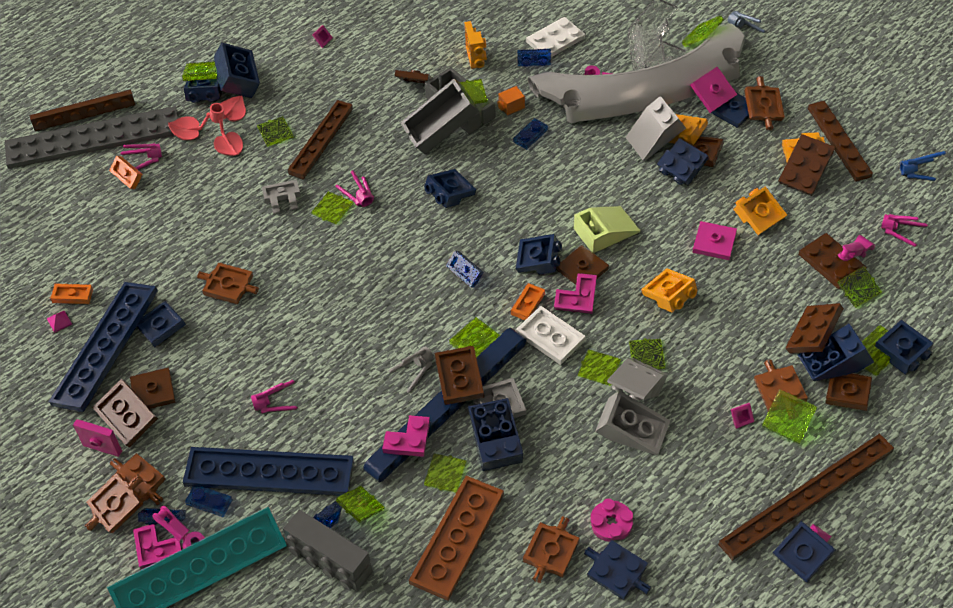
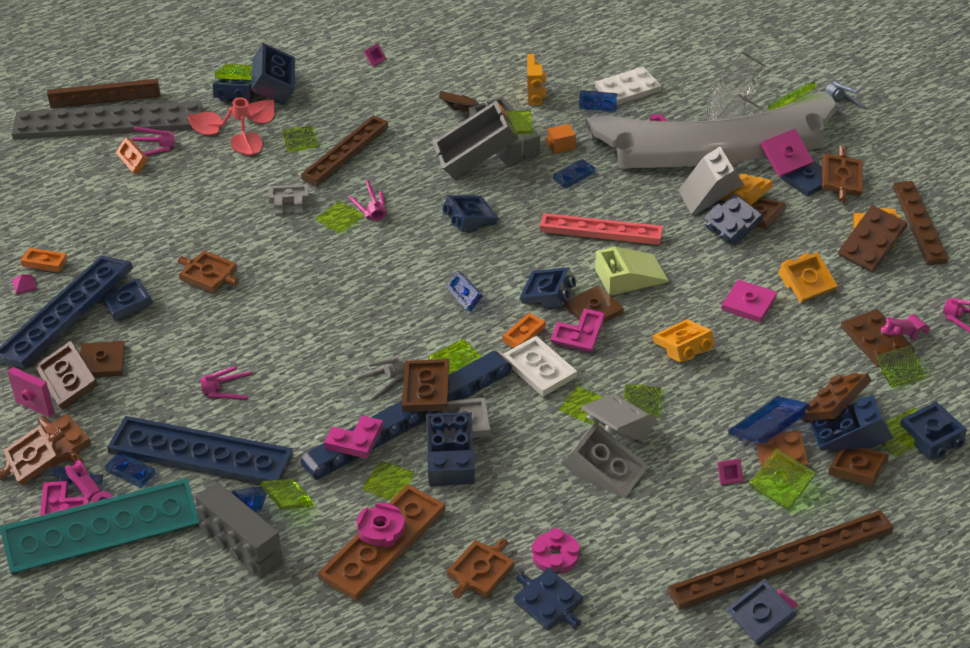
camera: 10 degrees right, 10 degrees down
(458, 534) = (380, 535): none -> dark pink plate
(569, 187) = (601, 229): none -> coral plate
(764, 359) = (769, 420): none -> clear blue piece

